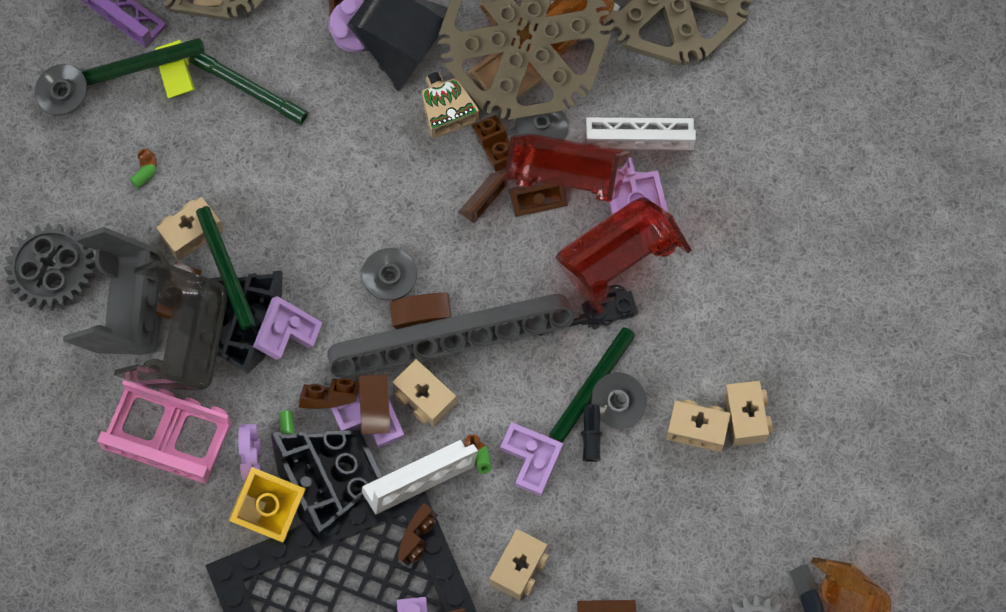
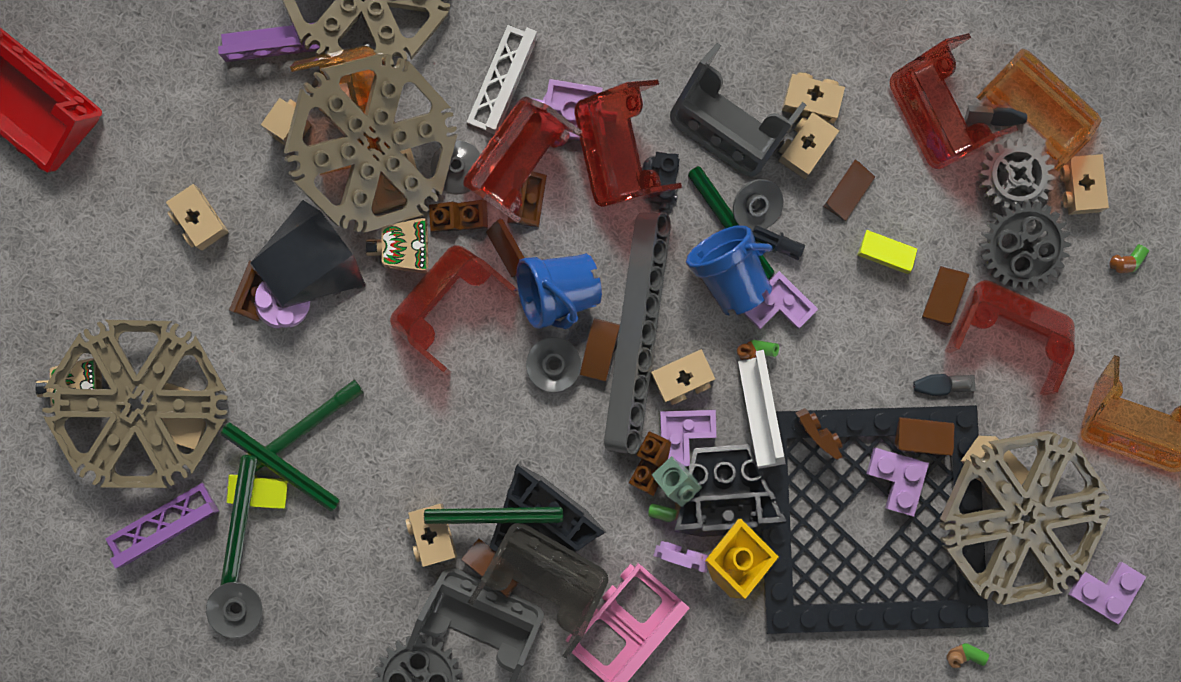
camera: 70 degrees left, 15 degrees up
(147, 170) = (349, 553): arm -> none
(203, 79) = (280, 466): none -> dark green axle
(285, 322) = (567, 482): lavender plate -> none
(319, 418) = (676, 481): none -> sand green brick
(374, 404) = (680, 426): reddish brown slope -> none
(446, 157) = (453, 264): none -> clear red windscreen
(460, 245) = (557, 289): none -> blue piece
(520, 548) = (878, 369): tan brick -> none
(542, 391) = (732, 268): none -> blue piece
(627, 542) = (887, 252): none -> neon yellow slope
(672, 482) = (849, 190): none -> reddish brown slope
(686, 338) = (723, 125): none -> dark grey windscreen
(790, 532) = (933, 111): none -> clear red windscreen

